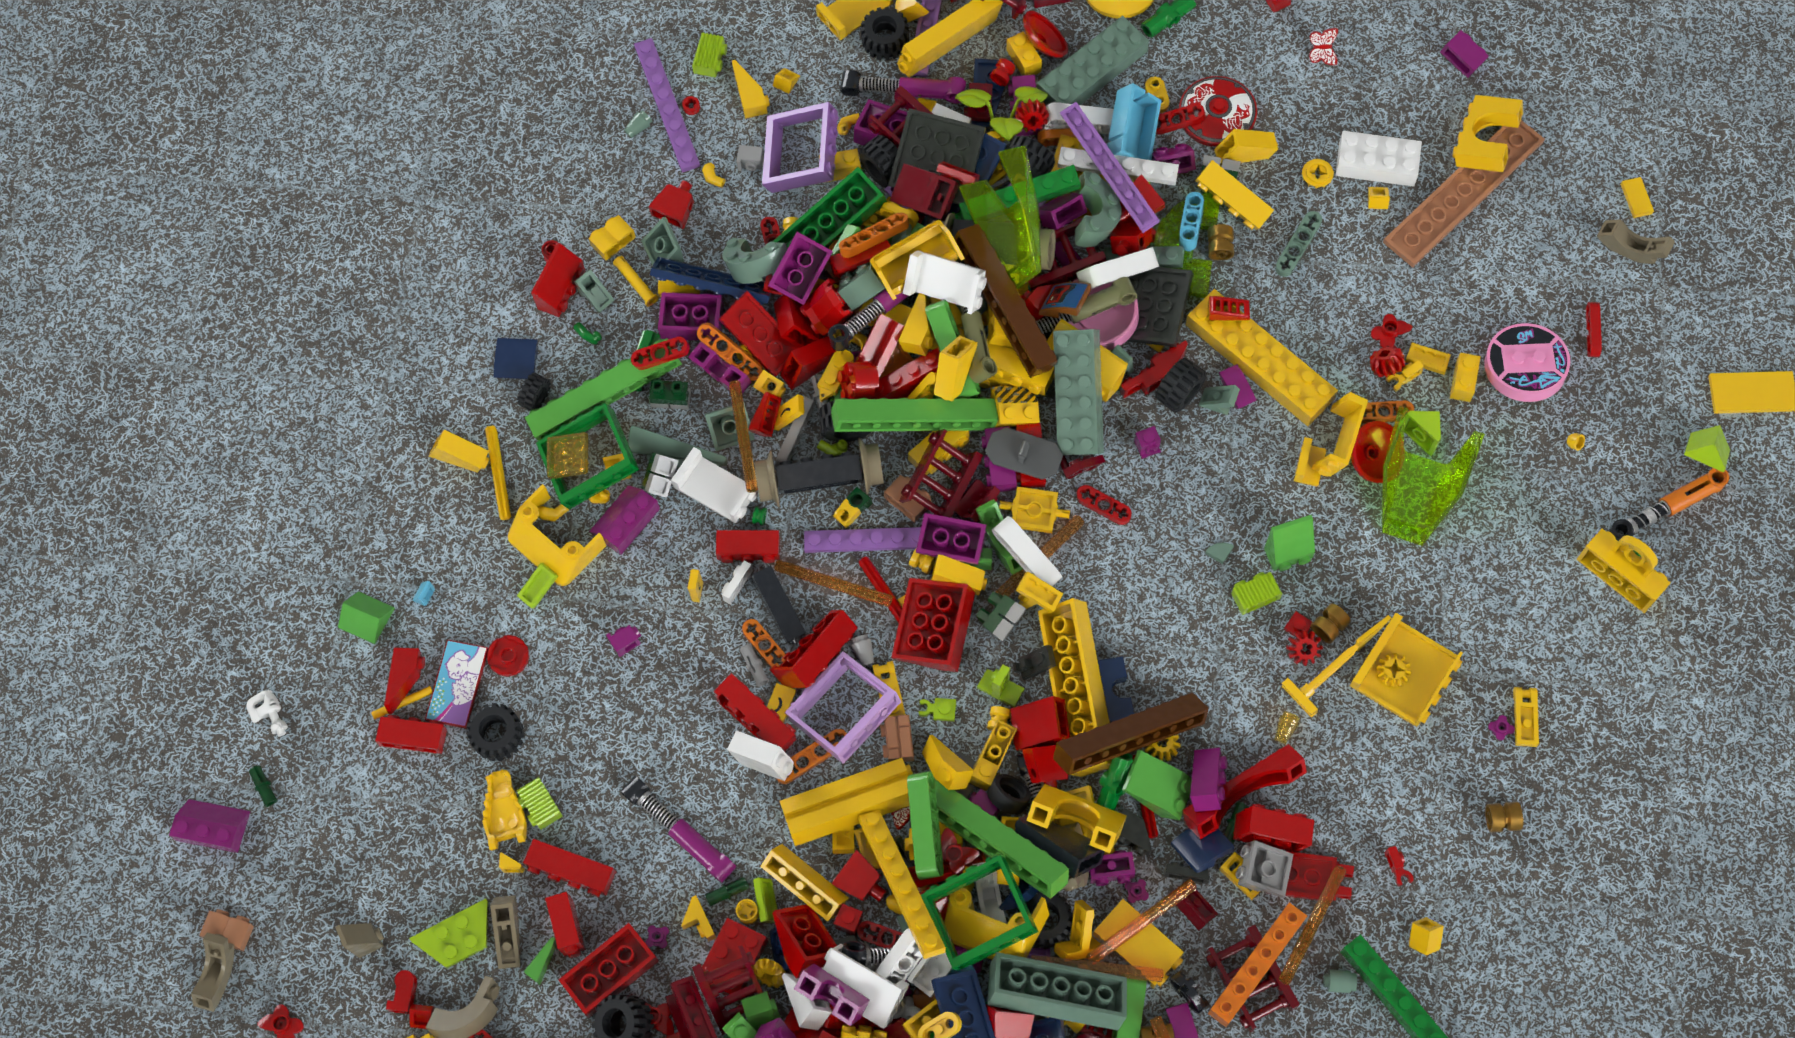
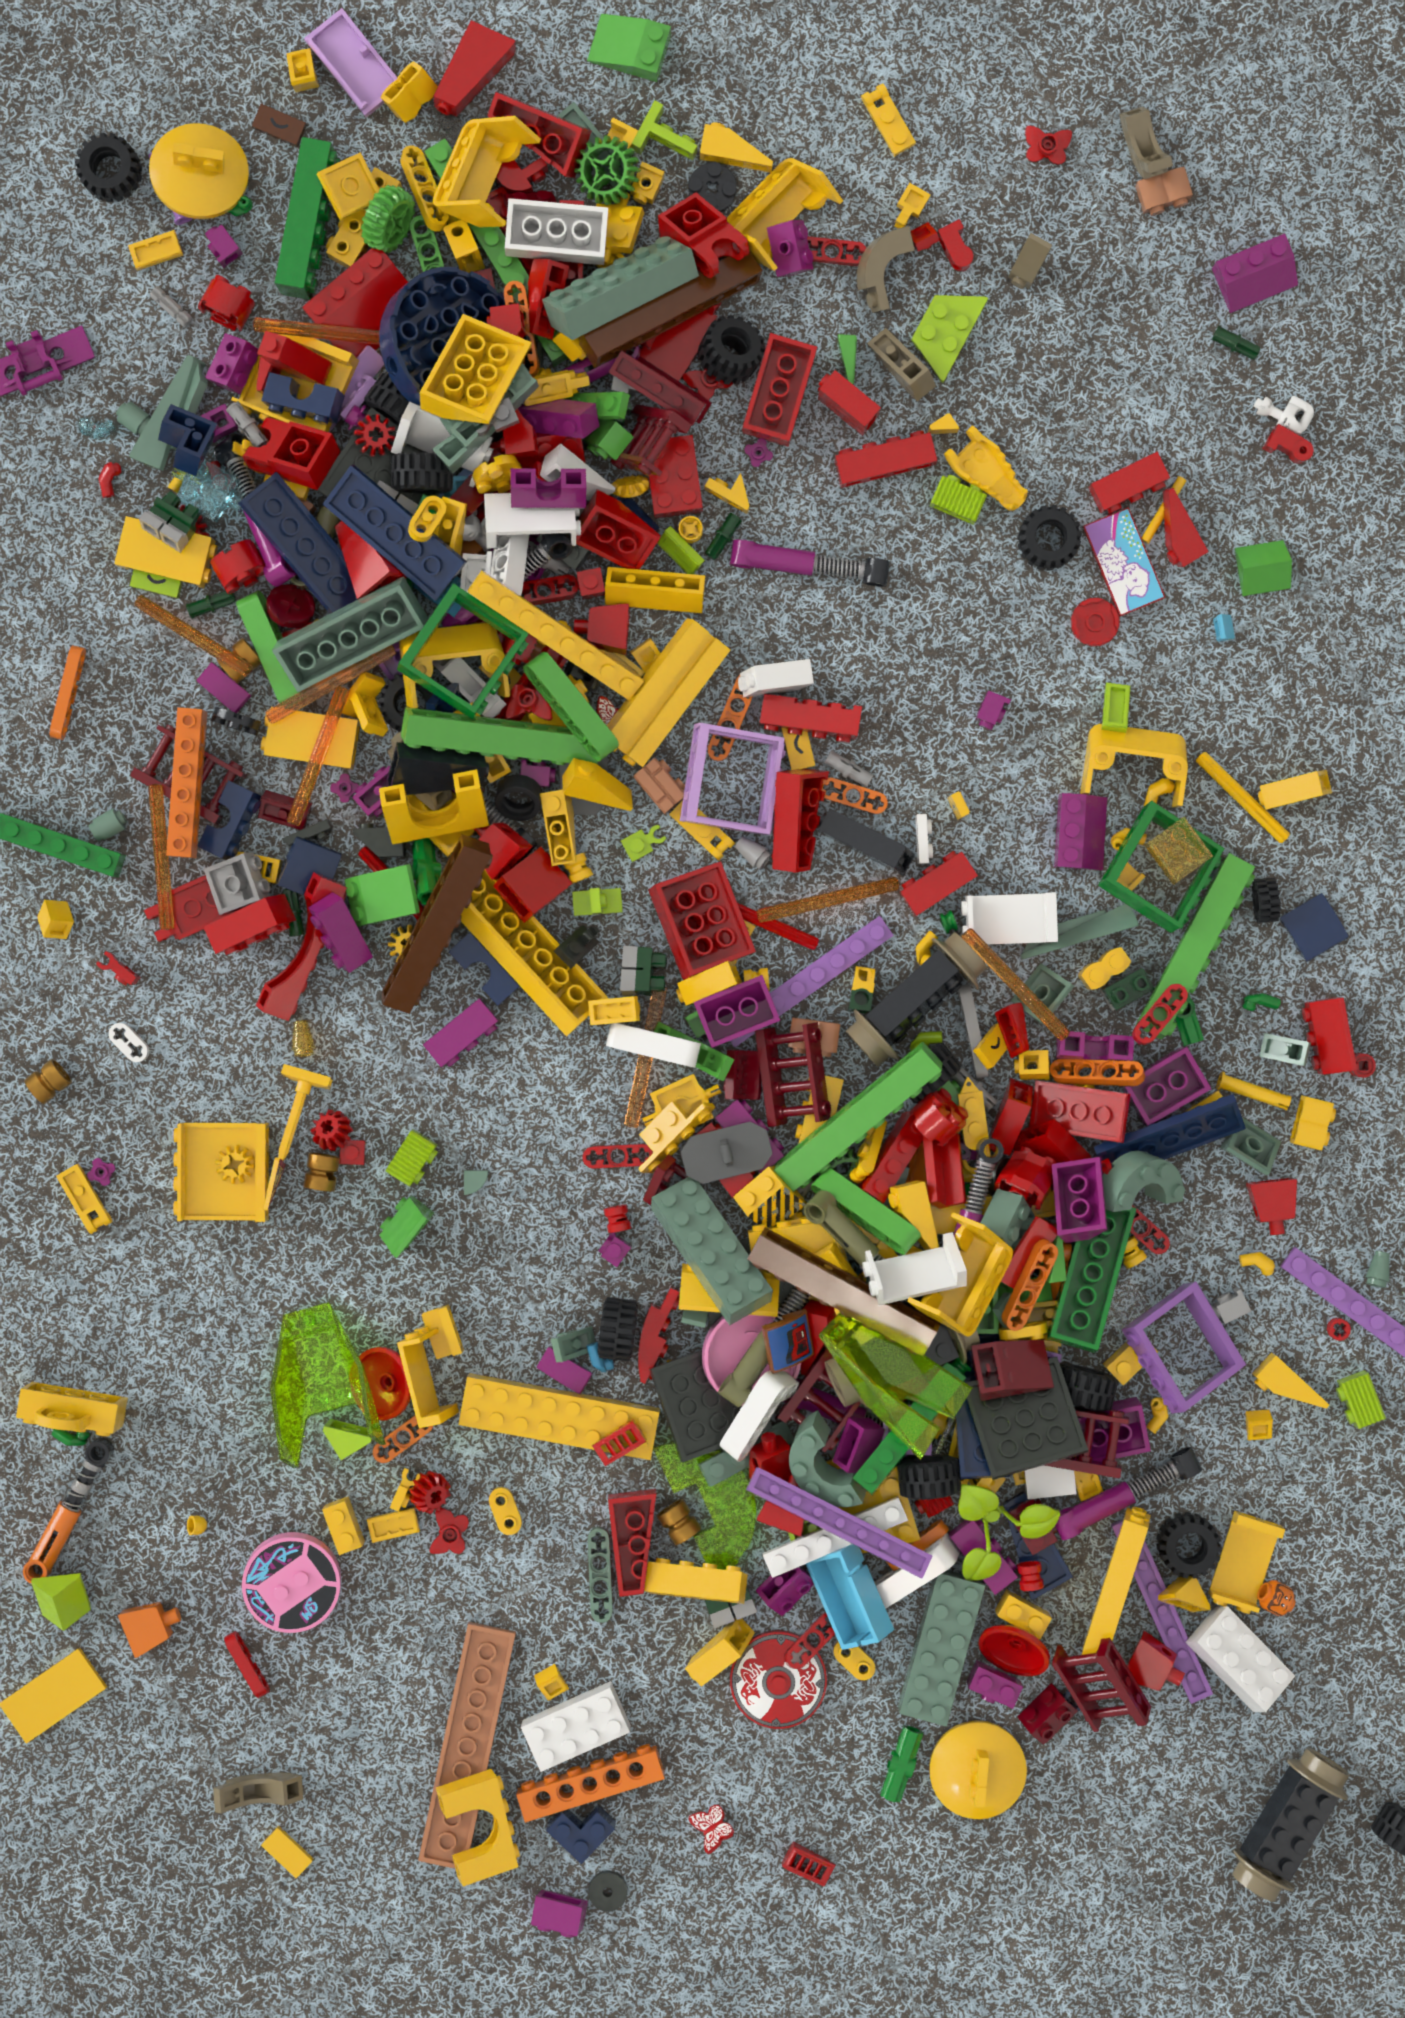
camera: 145 degrees right, 20 degrees up
(281, 689) = (1289, 443): none -> red leg
(657, 469) = (1074, 893): hips -> none
(675, 417) = (1110, 963): none -> yellow brick
(790, 509) = (923, 947): none -> yellow arm
(951, 171) = (987, 1409): red plate -> none
(954, 367) = (847, 1188): yellow slope -> none
(1032, 115) = (962, 1538): red gear -> none
(1056, 495) = (670, 1130): none -> yellow bracket
(1073, 25) = (994, 1684): none -> magenta brick
(1132, 461) = (617, 1218): none -> red wheel
(1162, 656) = (461, 1033): none -> magenta brick
(1191, 213) = (724, 1534): medium azure beam -> none
(1209, 381) = (599, 1363): none -> dark azure arm
(1224, 929) = (242, 805): none -> dark blue arch
(1257, 255) = (631, 1534): none -> red wedge
(1324, 169) = (626, 1681): yellow gear -> none
(1341, 321) = (505, 1511): none -> yellow plate
(1398, 114) = (534, 1807): none -> orange brick
(1417, 90) = (579, 1836): none -> dark blue brick
(1425, 44) = (604, 1901): none -> pearl dark grey piece
(1427, 807) = (132, 1038): none -> white beam
(1653, 395) = (147, 1626): none -> orange torso

